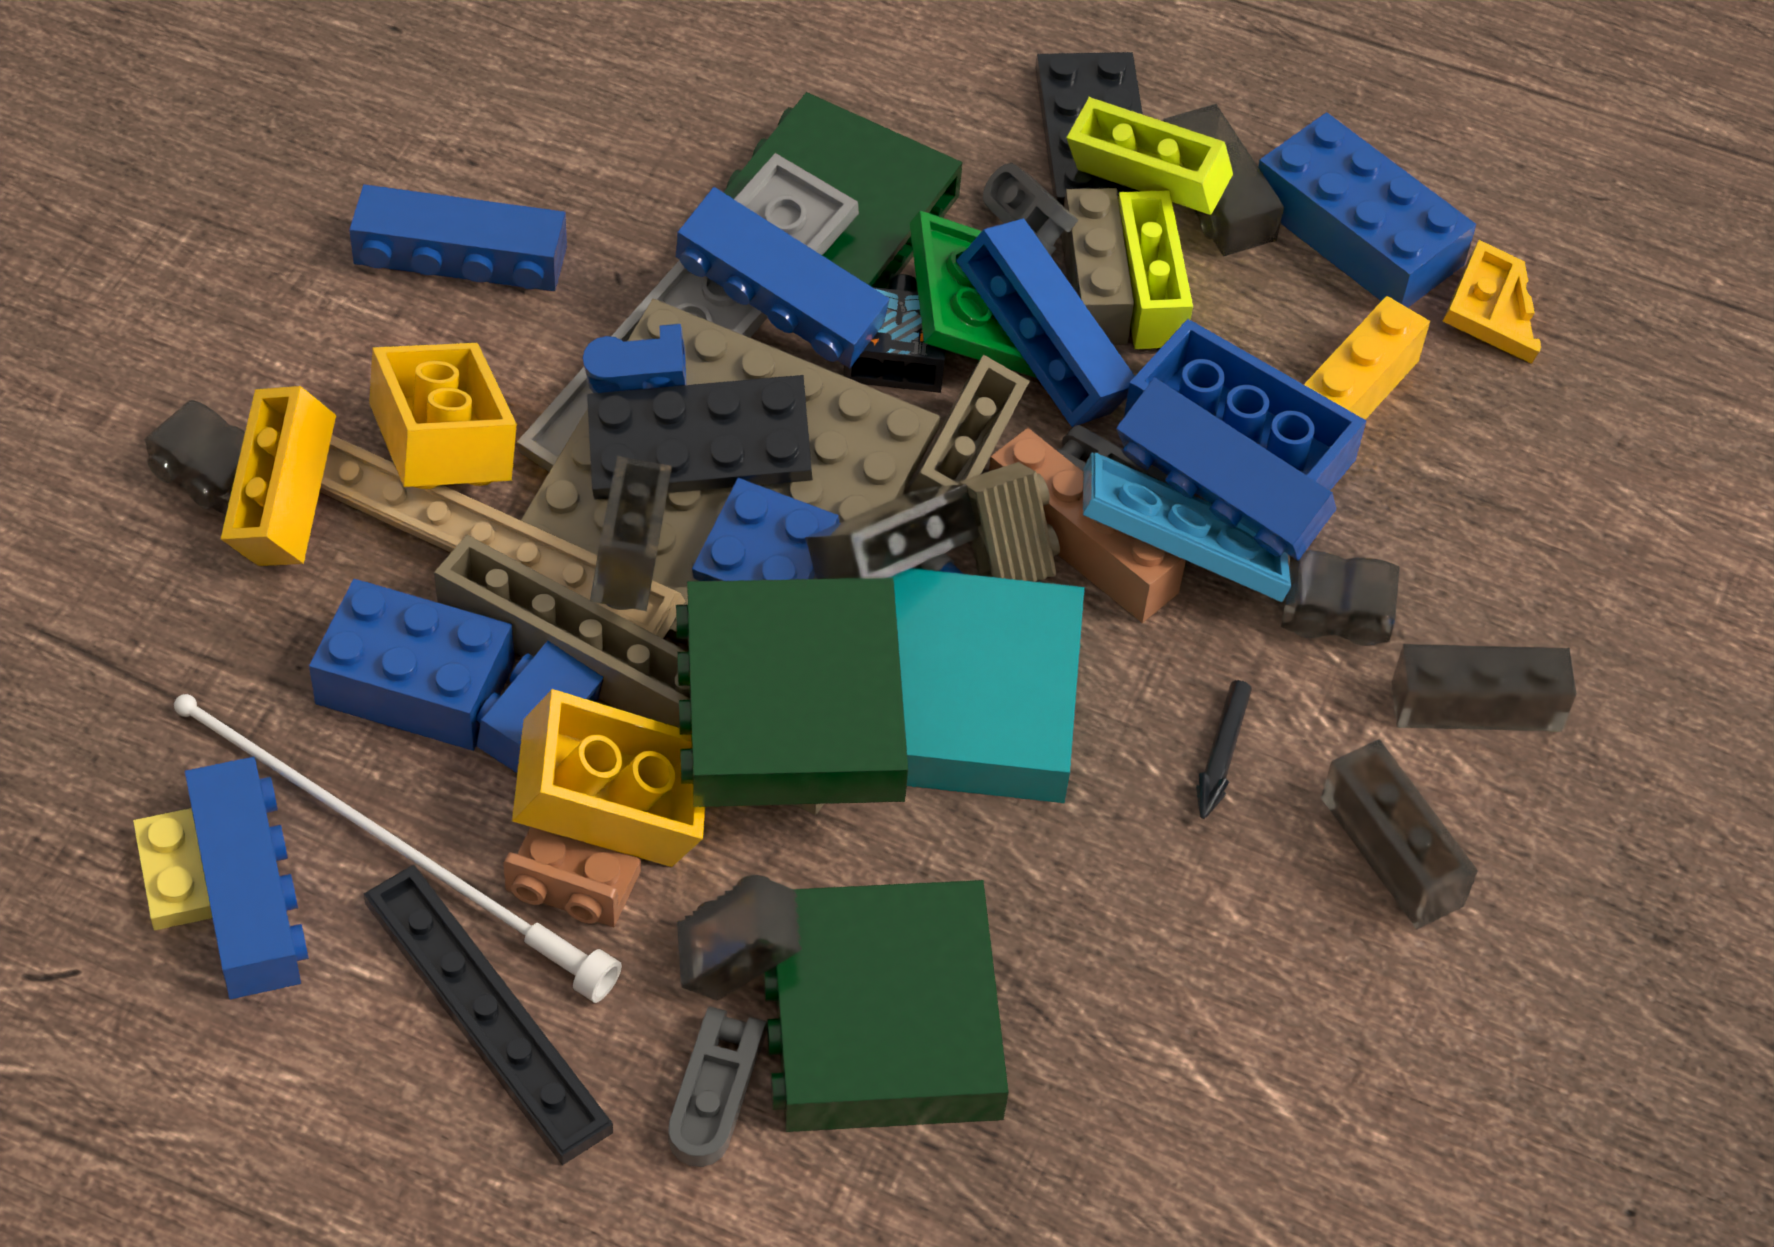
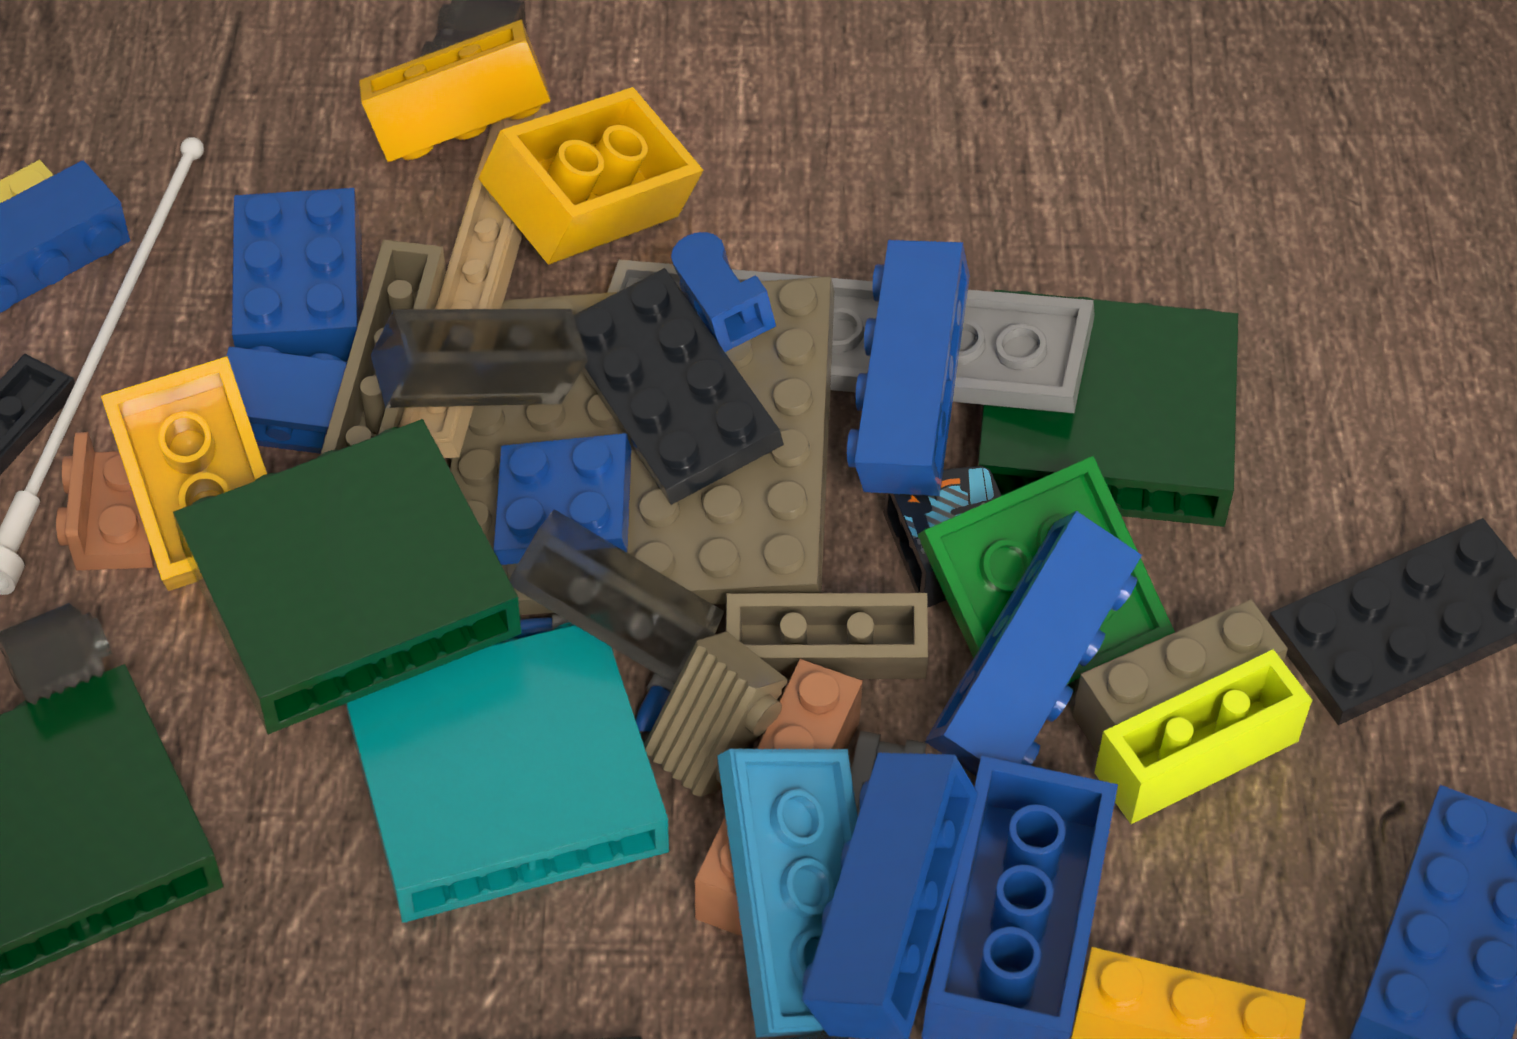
camera: 70 degrees right, 0 degrees up
(458, 237) = (858, 121): blue brick -> none
(1017, 195) = (1207, 582): dark grey plate -> none
(1150, 155) = (1345, 659): neon yellow brick -> none
(1249, 207) = (1390, 785): clear smoke brick -> none

